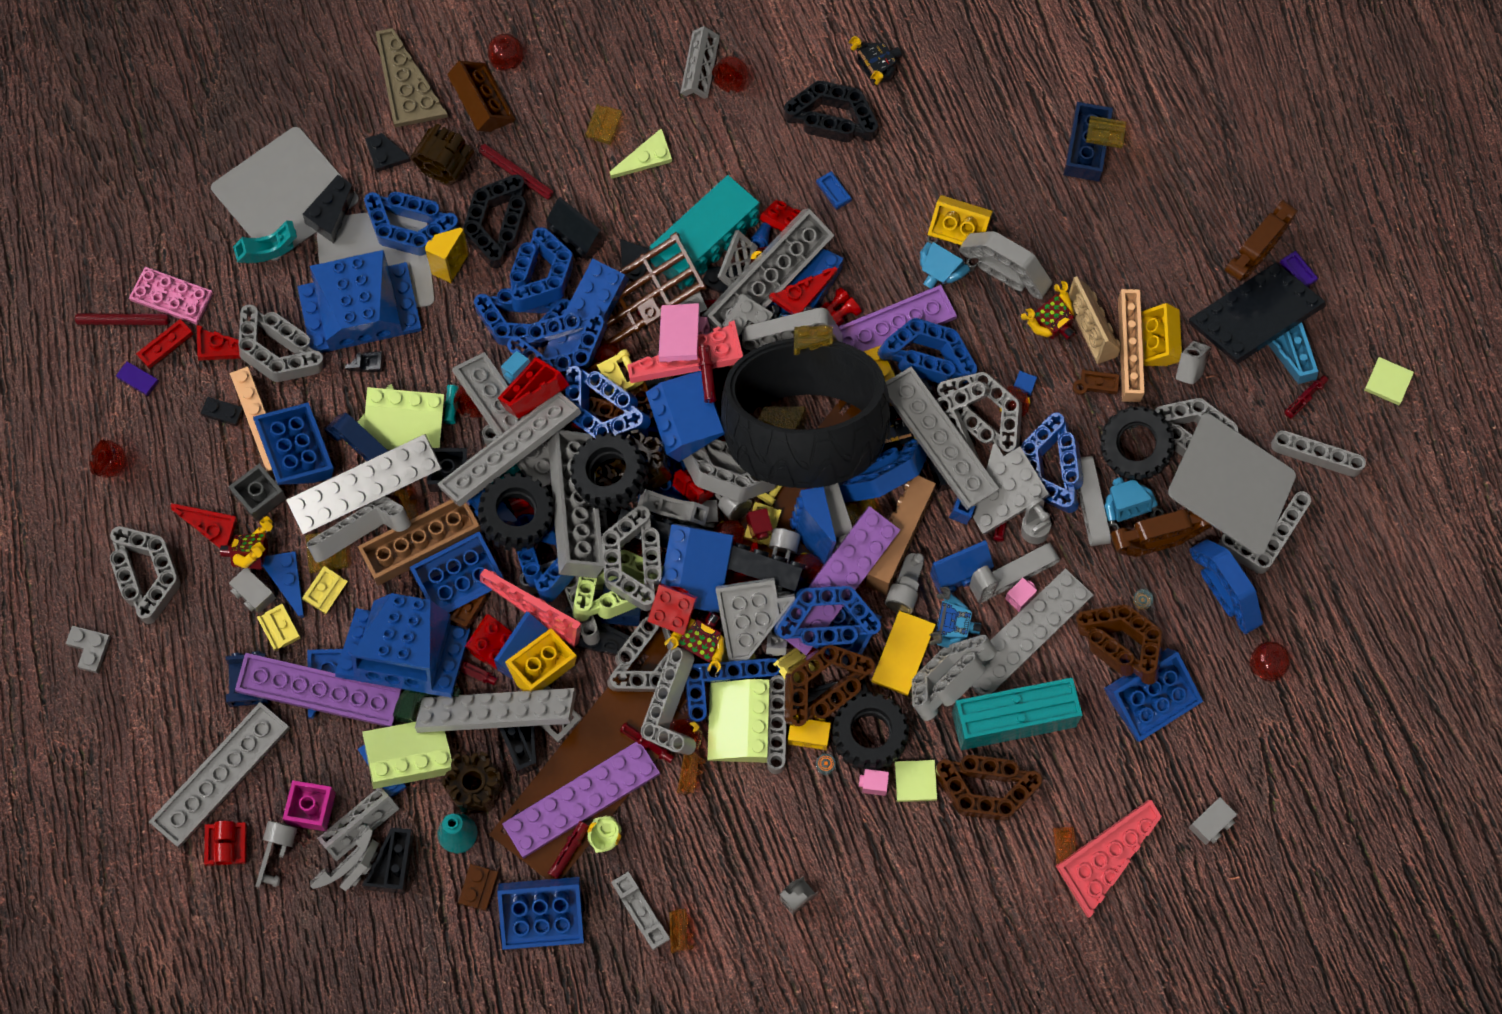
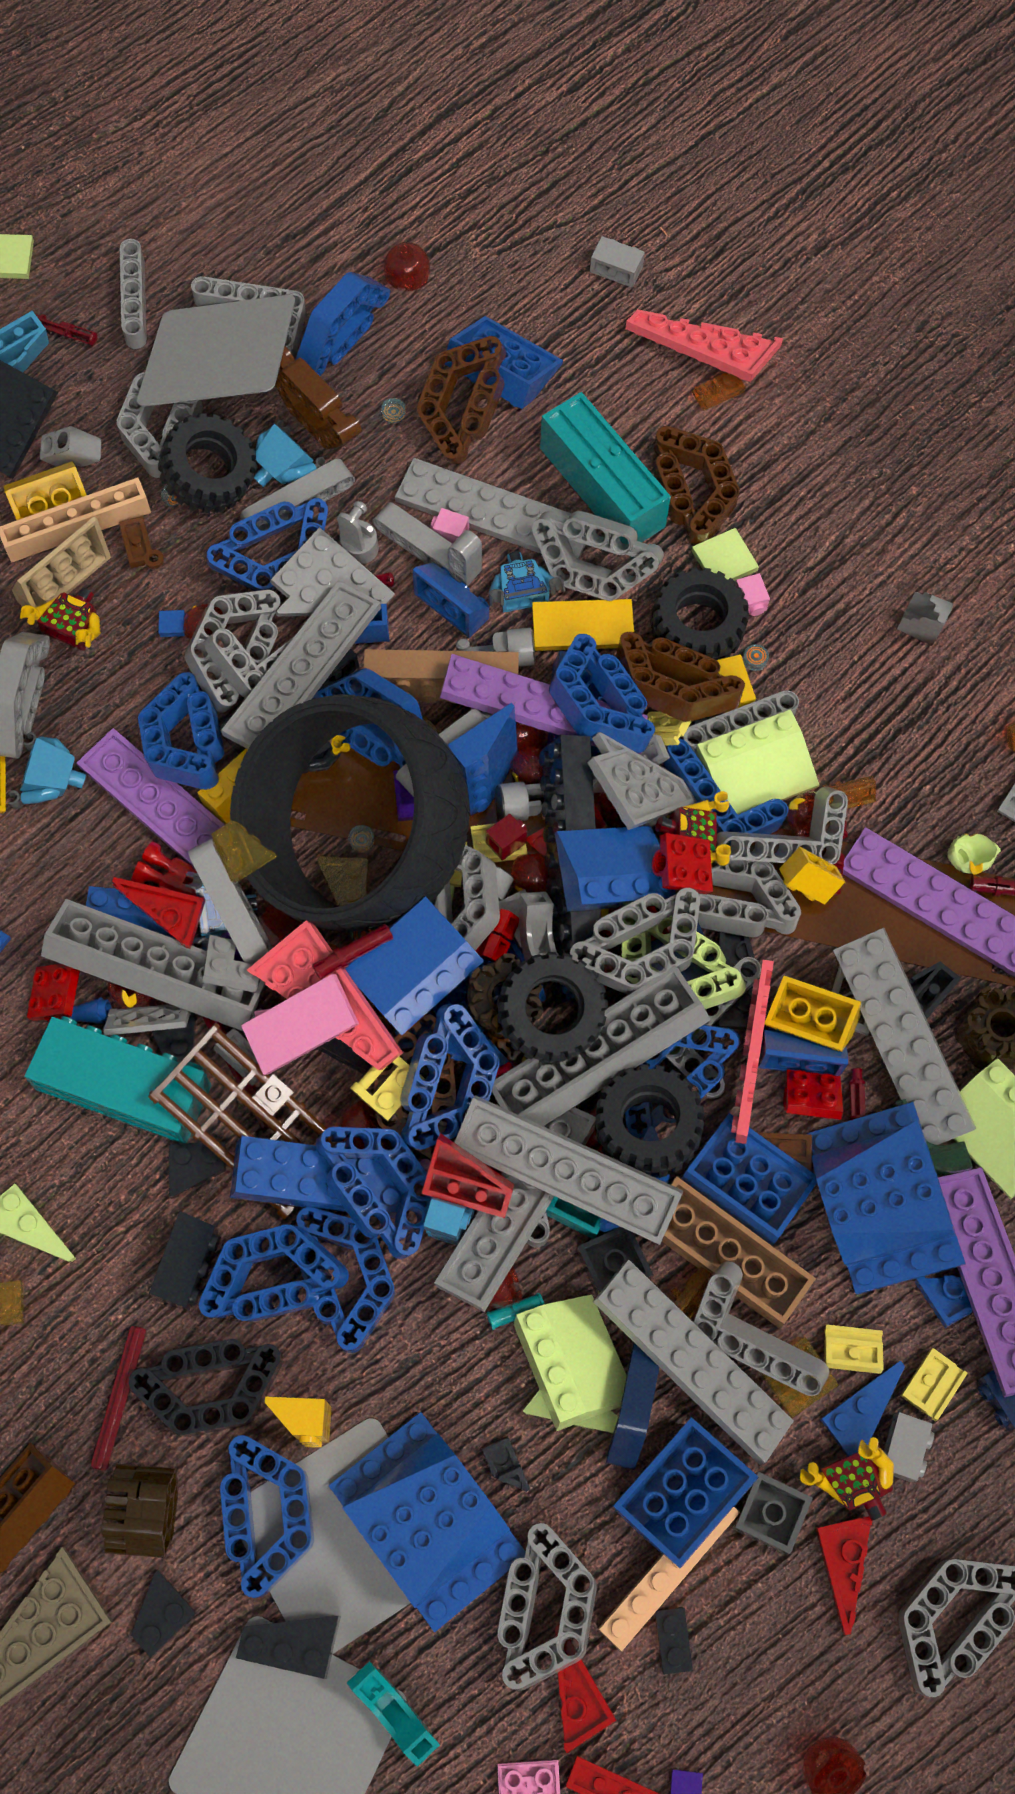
camera: 115 degrees left, 0 degrees up
(637, 709) = (811, 876): none -> yellow brick

